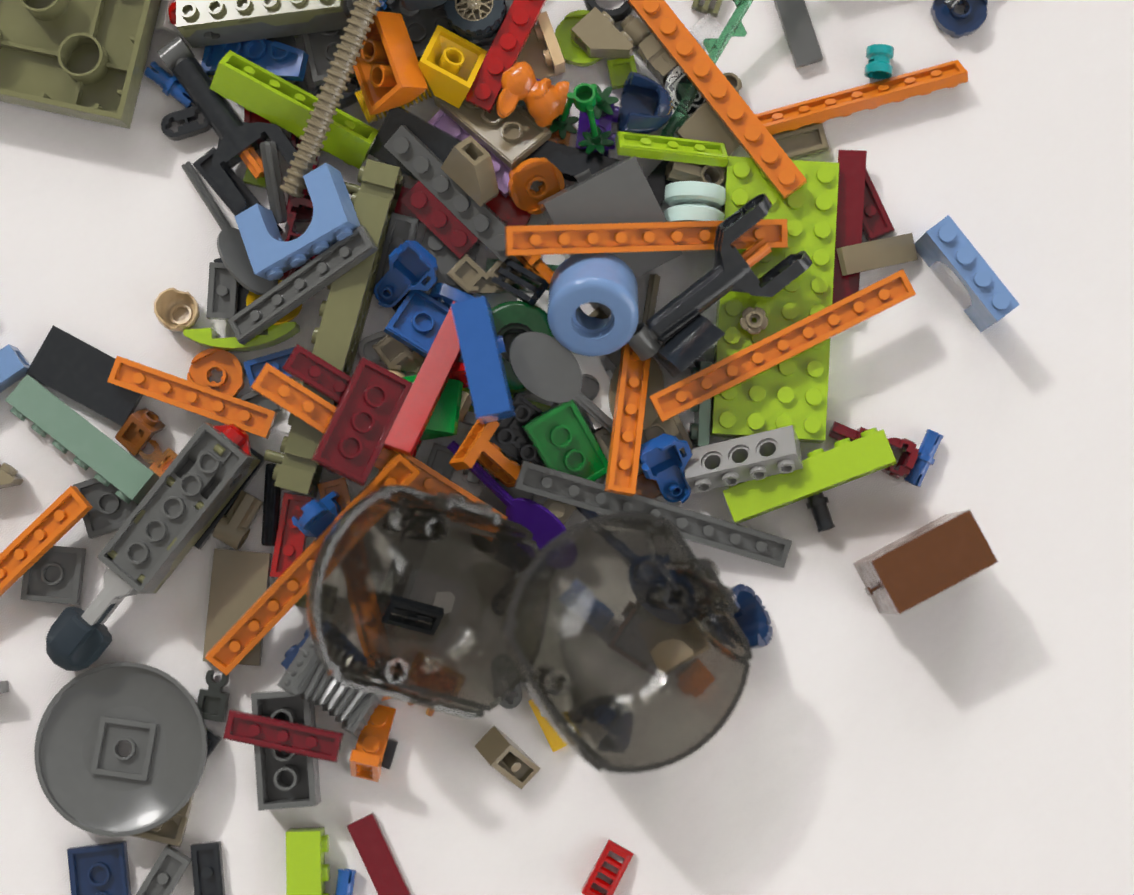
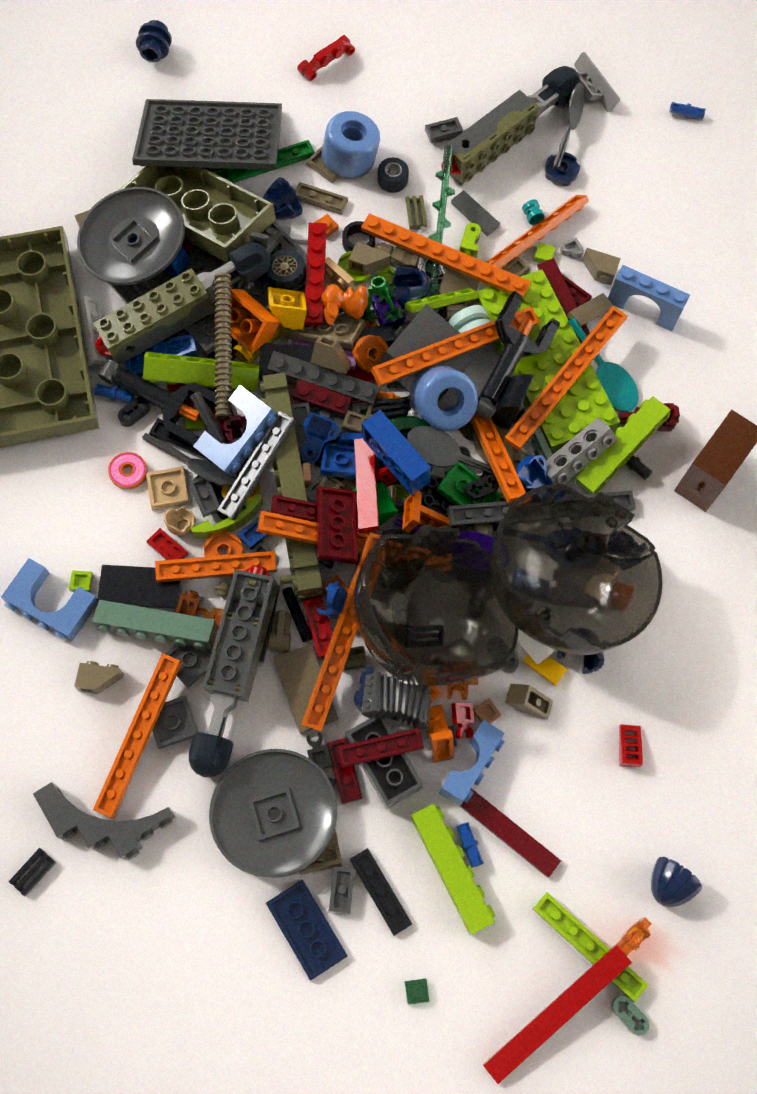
camera: 30 degrees left, 15 degrees down
(20, 333) = (82, 579): none -> lime tile
(132, 193) = (123, 461): none -> tile
(146, 338) = (166, 546): none -> red plate
(184, 253) = (167, 488): none -> tan tile
(190, 427) = (222, 589): none -> dark tan plate
(233, 754) = (346, 777): none -> dark red tile
(362, 823) = (459, 783): none -> medium blue arch
(370, 320) = (306, 474): none -> light nougat tile
(413, 737) = (463, 716): none -> red plate
(449, 745) = (487, 711): none -> medium nougat tile
(584, 443) = (479, 483): none -> black beam
(748, 325) = (542, 375): dark tan plate -> none
(768, 62) = (469, 240): none -> lime leg
(854, 372) = (613, 378): none -> teal piece
(862, 133) = (544, 252): none -> lime tile
(907, 142) = (572, 248): none -> light grey tile
(925, 457) = (680, 401): blue pin -> none
(931, 190) = (601, 265): none -> dark tan slope

